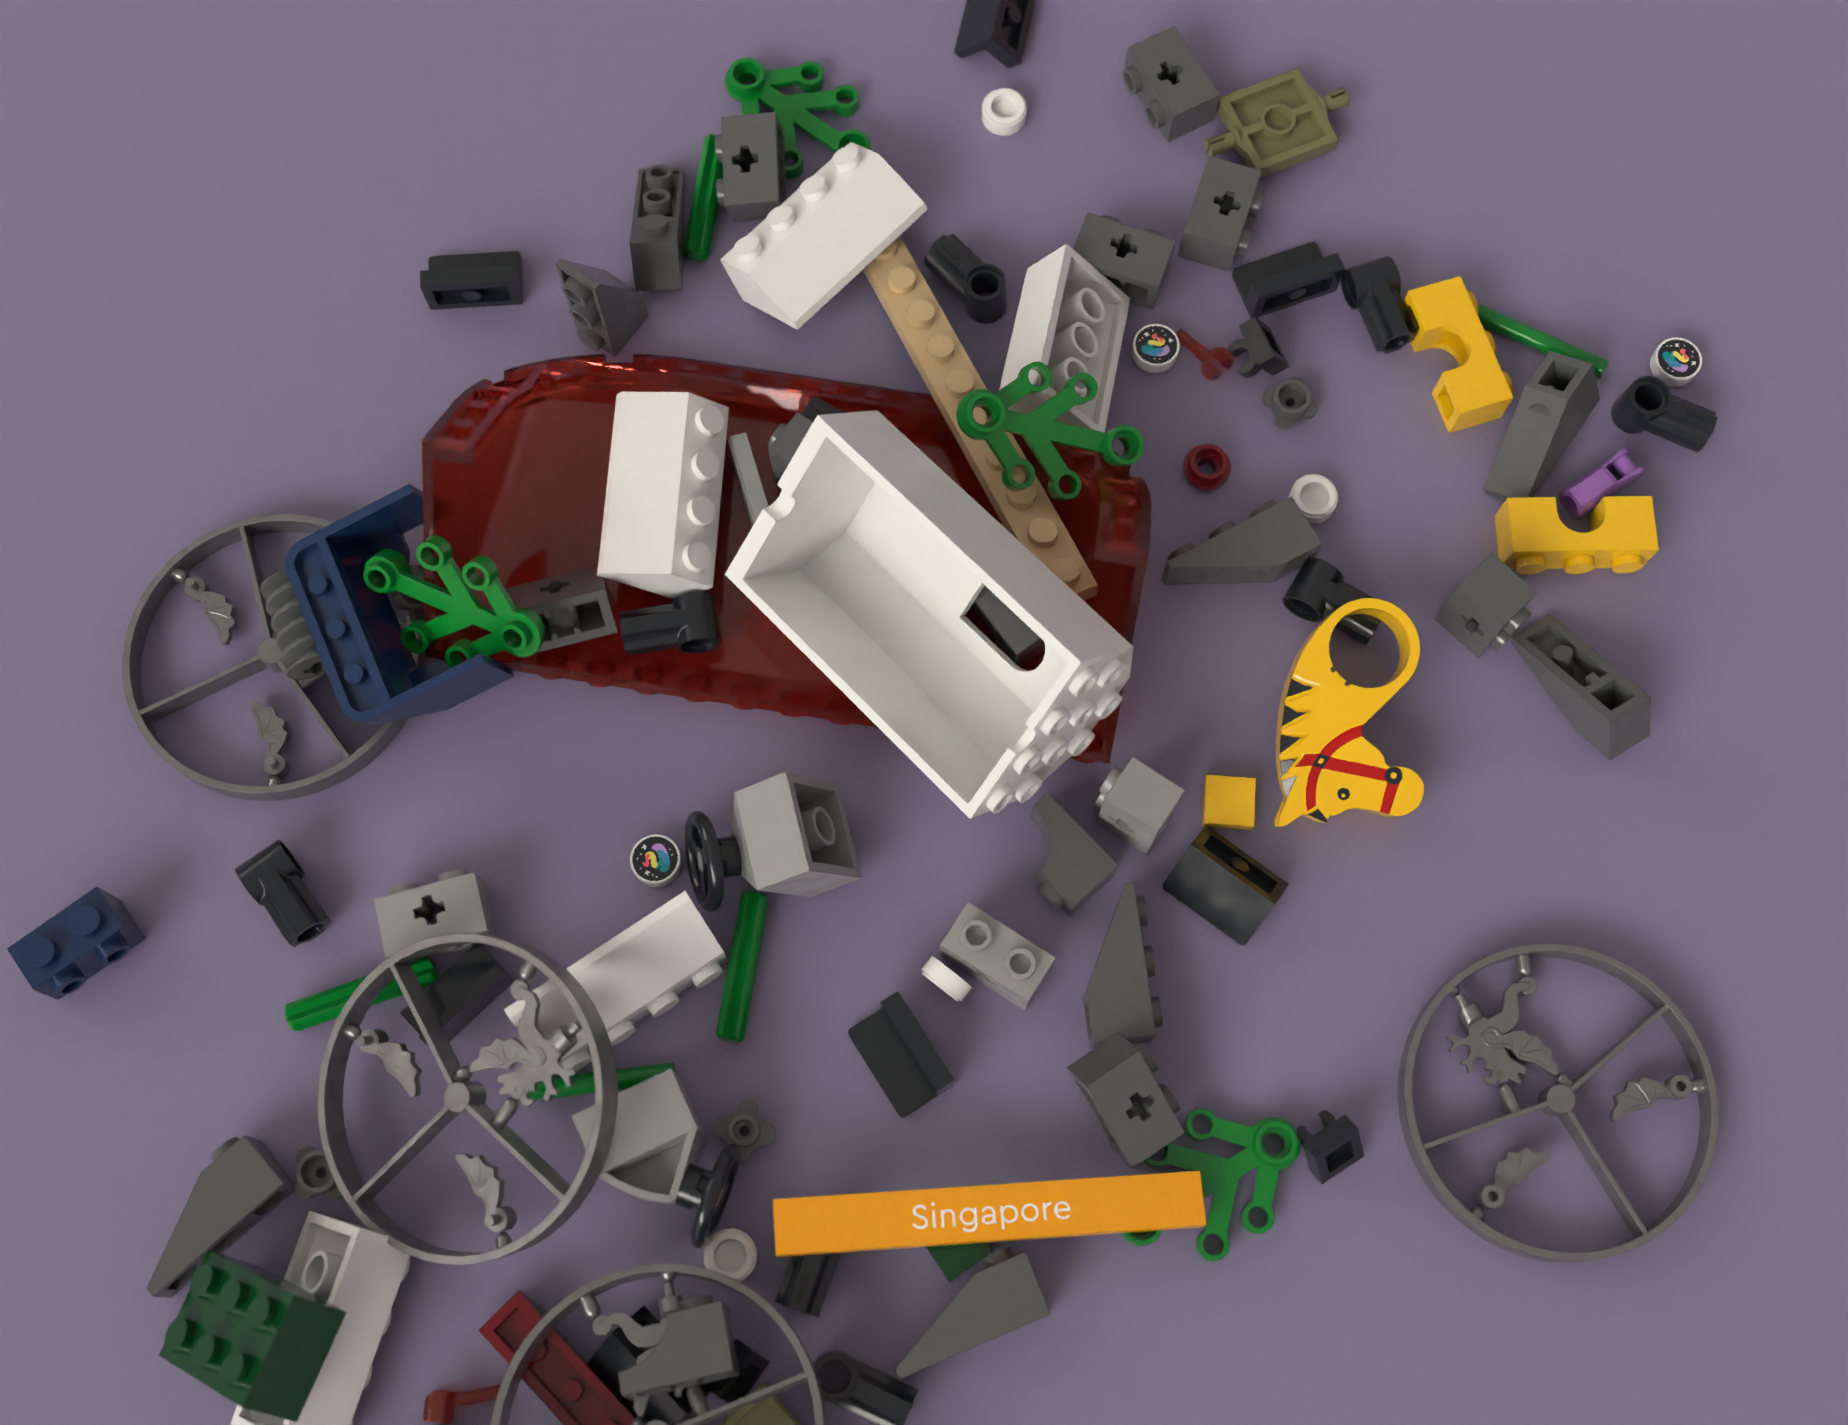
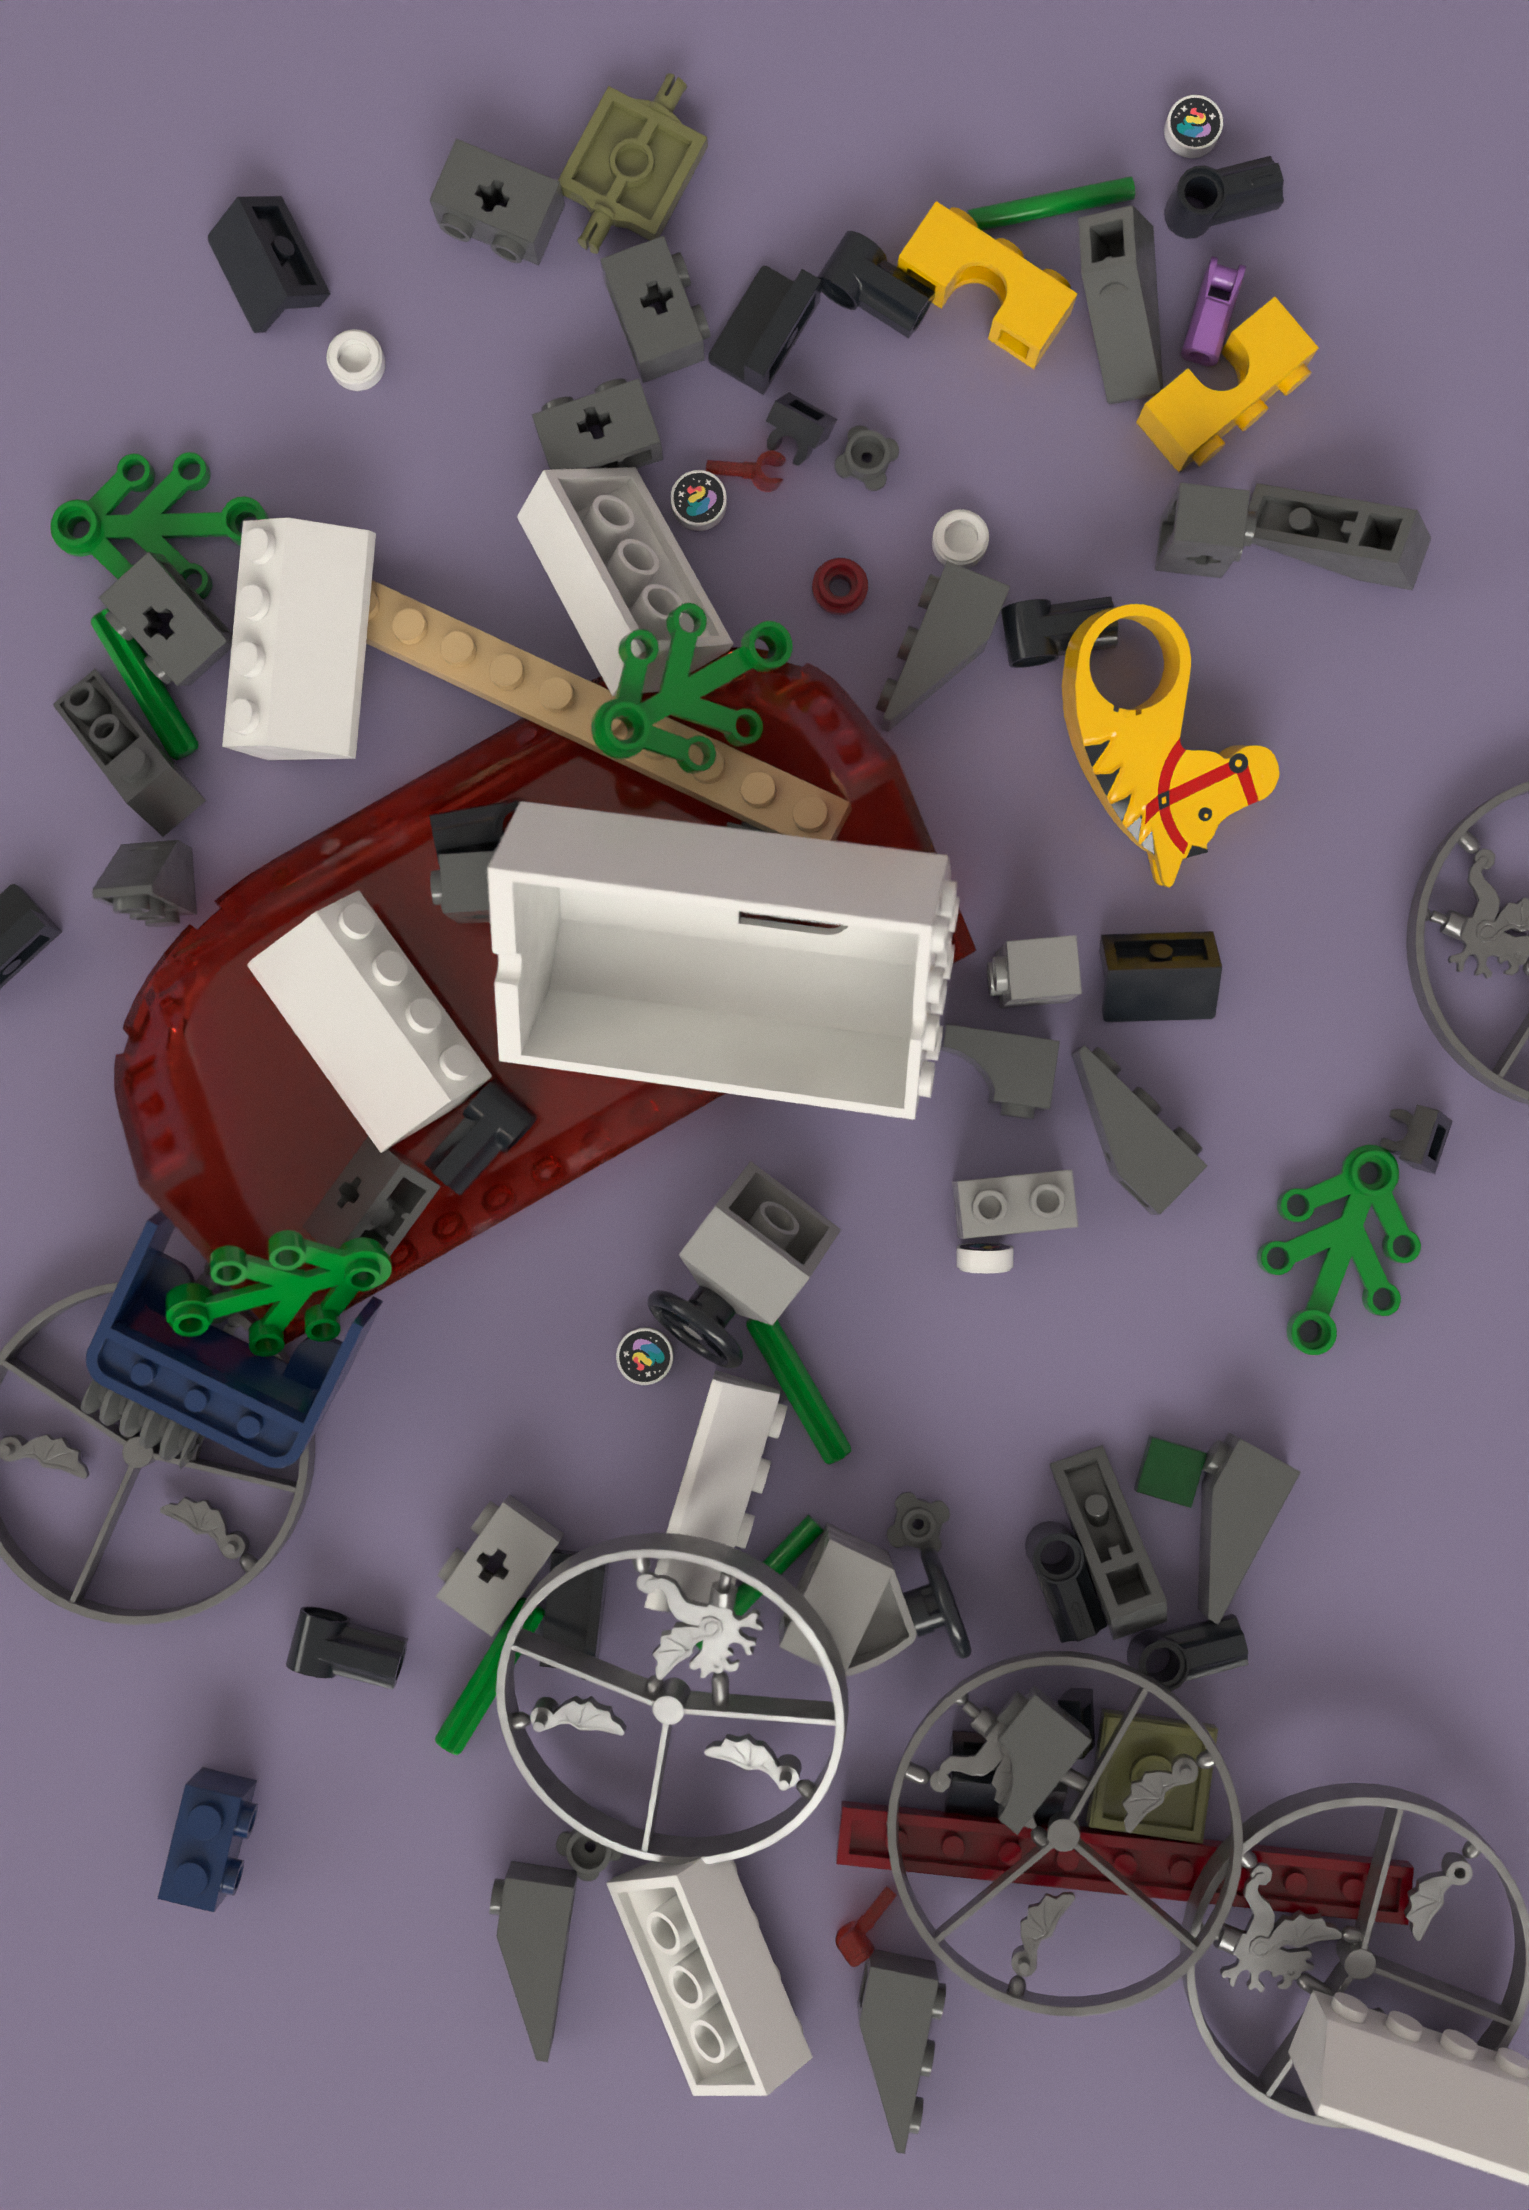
camera: 35 degrees left, 15 degrees up
(252, 1336) = (663, 2028): dark green brick -> none
(731, 1254) = (991, 1632): white tile -> none
(747, 476) = (440, 946): light grey tile -> none
(860, 1280) = (1110, 1543): none -> dark grey slope
(901, 1056) = (997, 1354): black panel -> none
(967, 276) = (463, 568): black piece -> none
(987, 1213) = (1185, 1433): light orange tile -> none
(1127, 1099) = (1224, 1240): dark grey brick -> none
(1229, 802) = (1104, 897): yellow tile -> none

